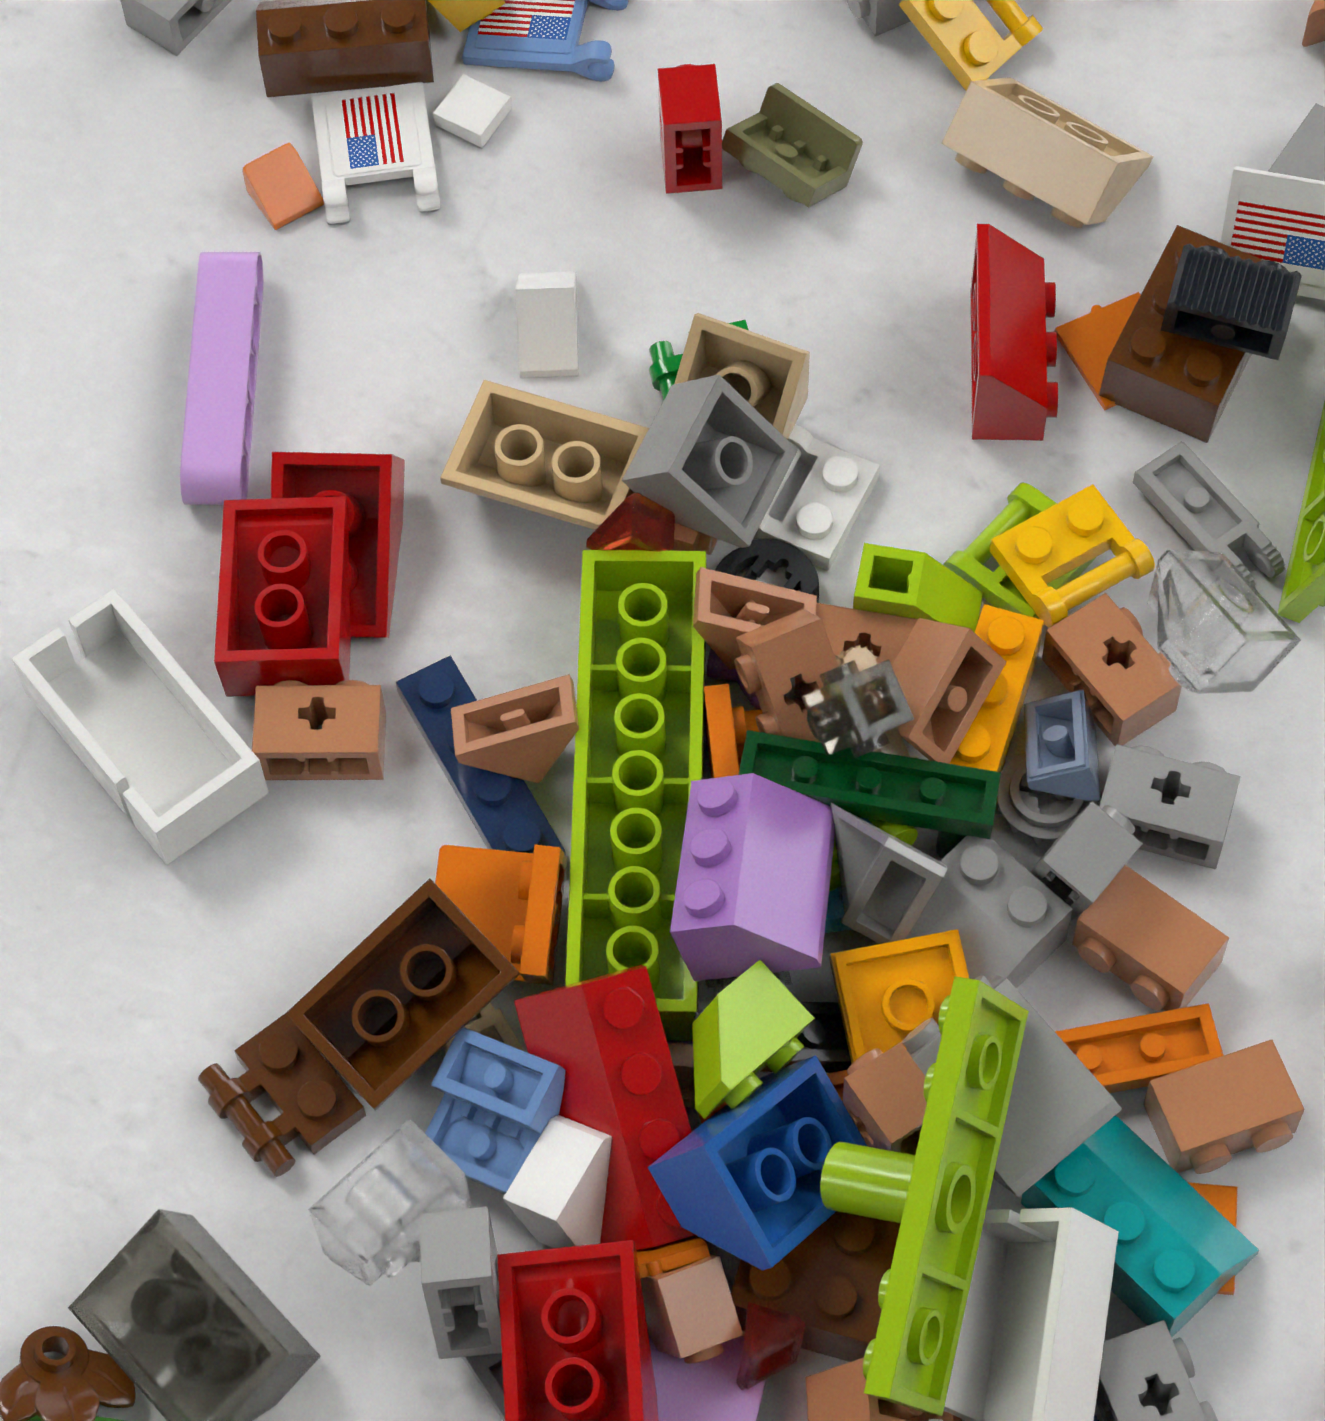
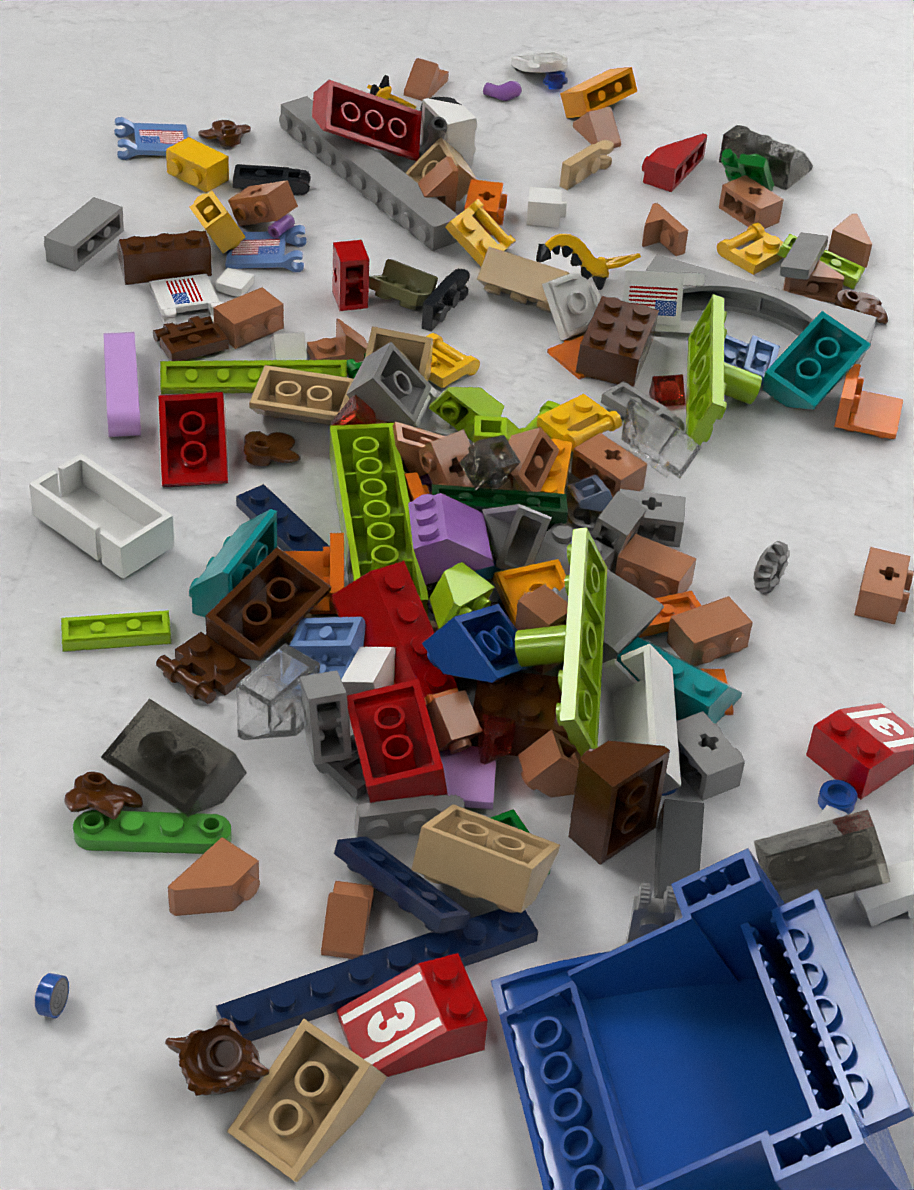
camera: 15 degrees left, 20 degrees down
(140, 988) = (115, 630): none -> lime tile
(281, 186) = (139, 312): orange slope -> none
(283, 593) = (173, 459): red slope -> none
(344, 749) = (201, 515): nougat brick -> none
(367, 873) = (235, 560): none -> teal slope
(368, 274) = (191, 338): none -> reddish brown plate
(456, 372) = (233, 375): none -> lime tile
(476, 559) = (263, 448): none -> reddish brown plate
(483, 218) = (249, 317): none -> nougat brick
(517, 730) = (309, 502): nougat slope -> none
(646, 306) = (345, 346): none -> nougat slope
(835, 374) = (449, 363): none -> yellow plate
(863, 509) = (461, 405): none -> lime slope
(873, 183) = (444, 298): none -> black hinge
(1010, 340) = (527, 347): red slope -> none
(1119, 229) = (571, 303): none -> white tile
(1174, 120) = (581, 255): none -> yellow piece
(1231, 301) = (637, 313): black brick -> none
(1270, 467) = (668, 390): none -> clear red slope

